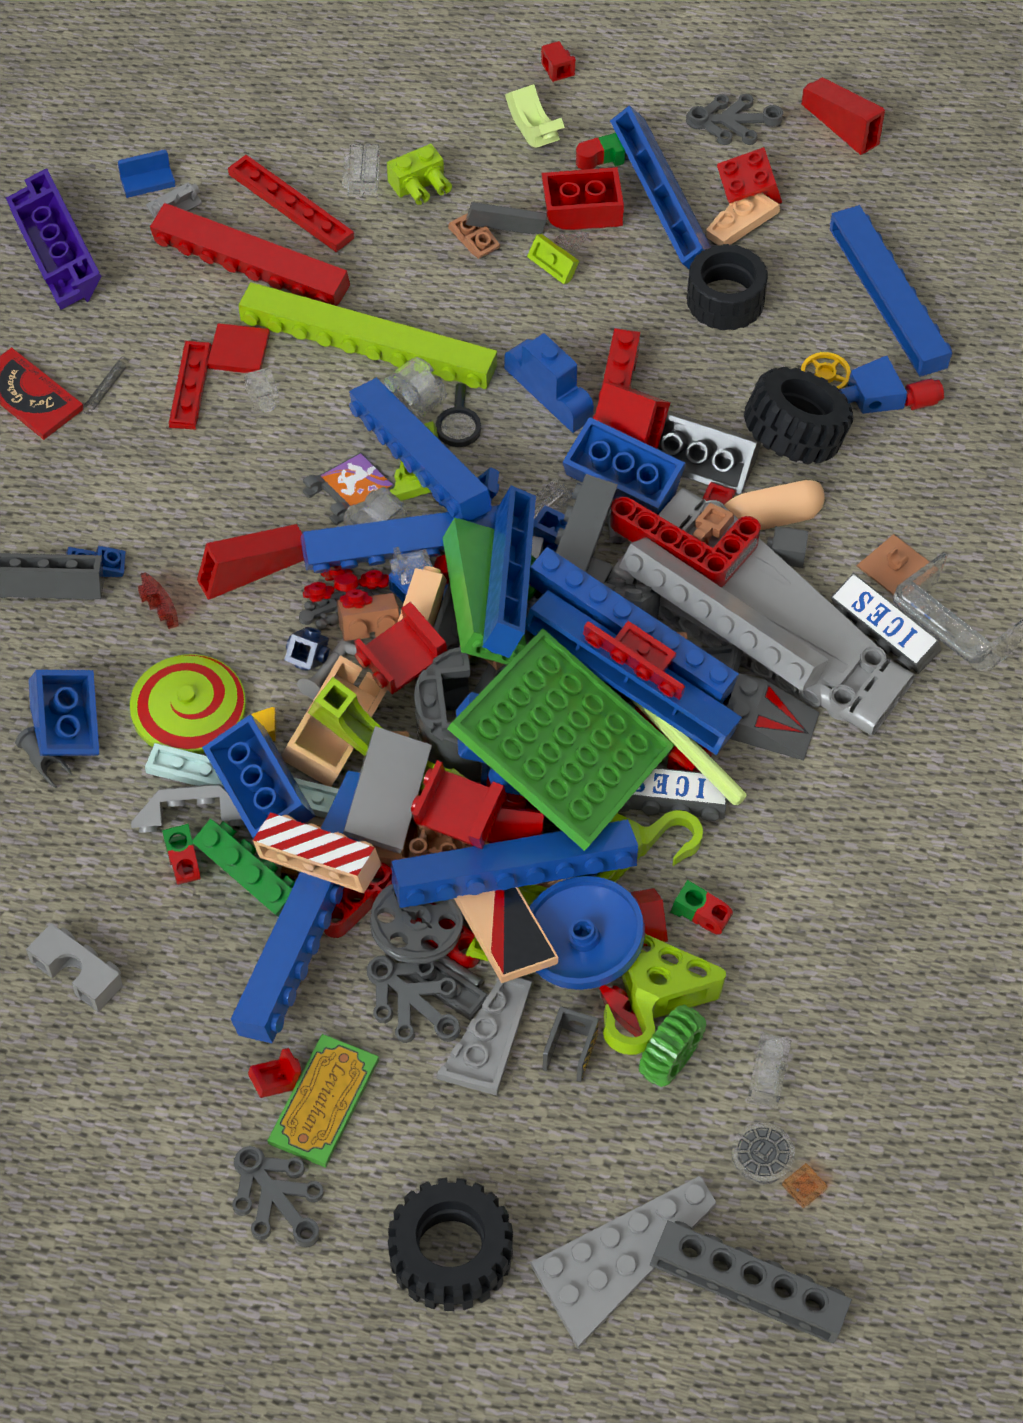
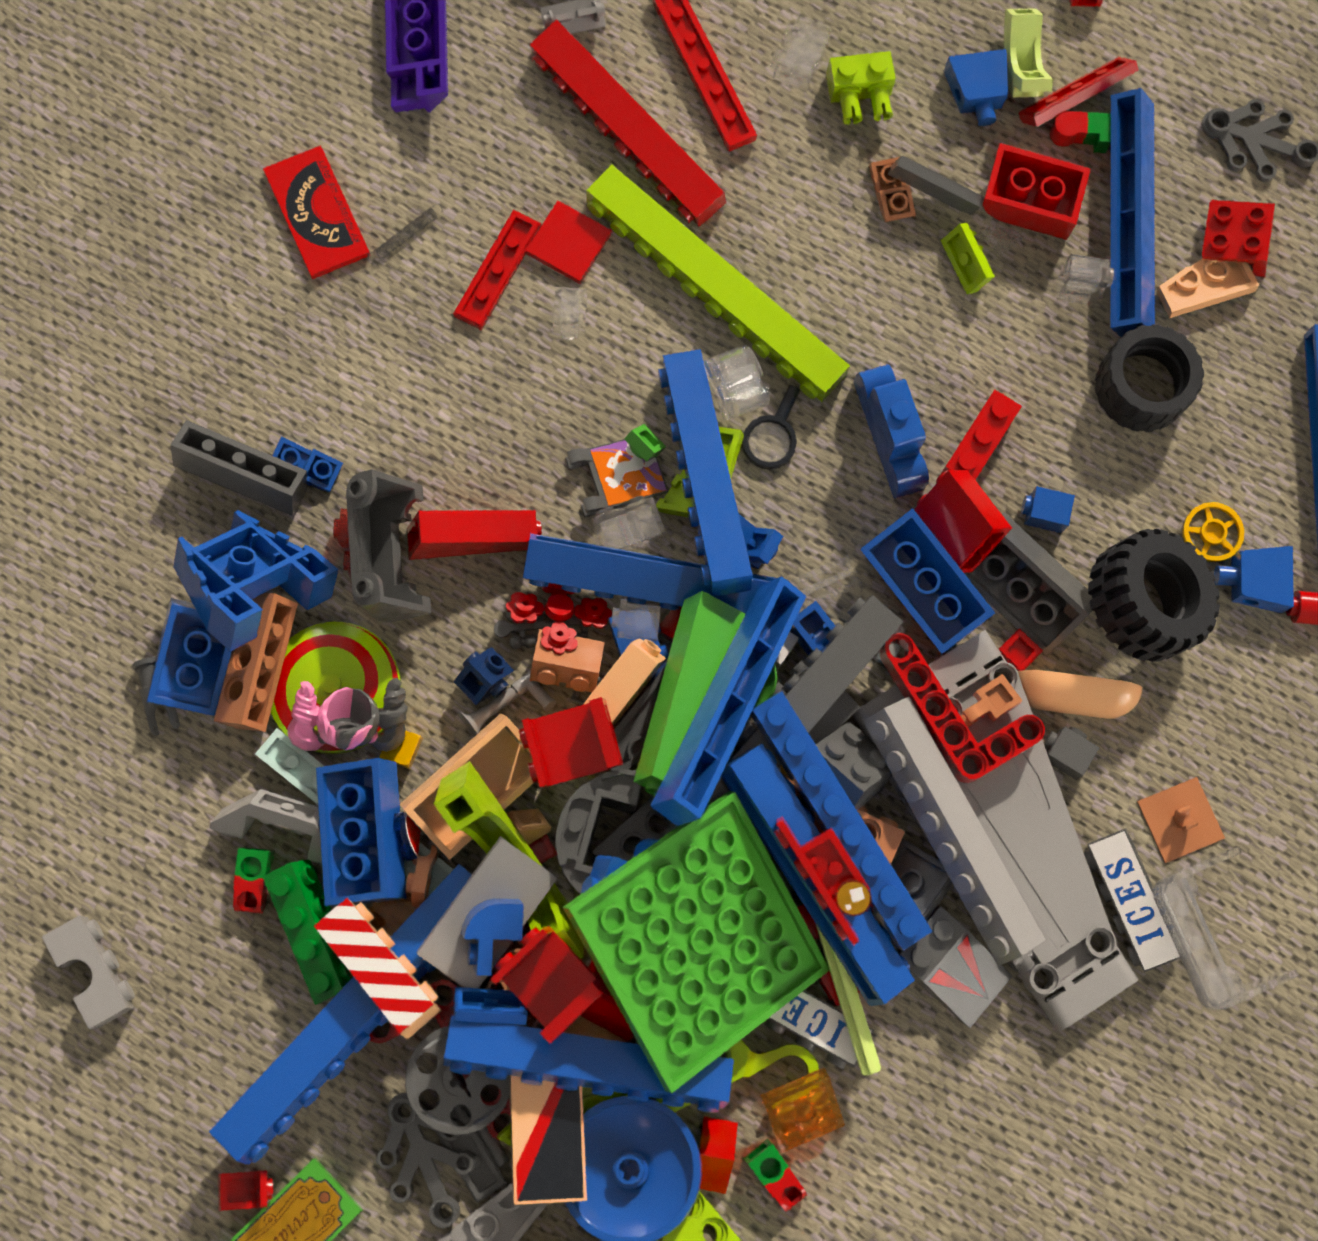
camera: 15 degrees right, 20 degrees up
(86, 639) = (243, 564): none -> blue wedge
(118, 702) = (257, 667): none -> nougat brick
(174, 559) = (374, 512): none -> dark grey windscreen
(210, 708) = (348, 719): none -> hair
(296, 768) = (409, 834): none -> tile
(319, 795) = (419, 882): none -> nougat plate
(361, 455) = (644, 443): none -> bright green plate
(393, 785) = (488, 922): none -> blue brick
(419, 847) = (488, 1006): none -> blue tile
(507, 147) = (979, 83): none -> blue torso
(584, 129) = (1078, 91): none -> red tile
(647, 240) = (1083, 279): none -> clear brick
(667, 659) = (853, 897): none -> tile
(693, 396) = (1048, 509): none -> blue brick
(700, 850) = (802, 1110): none -> clear orange plate

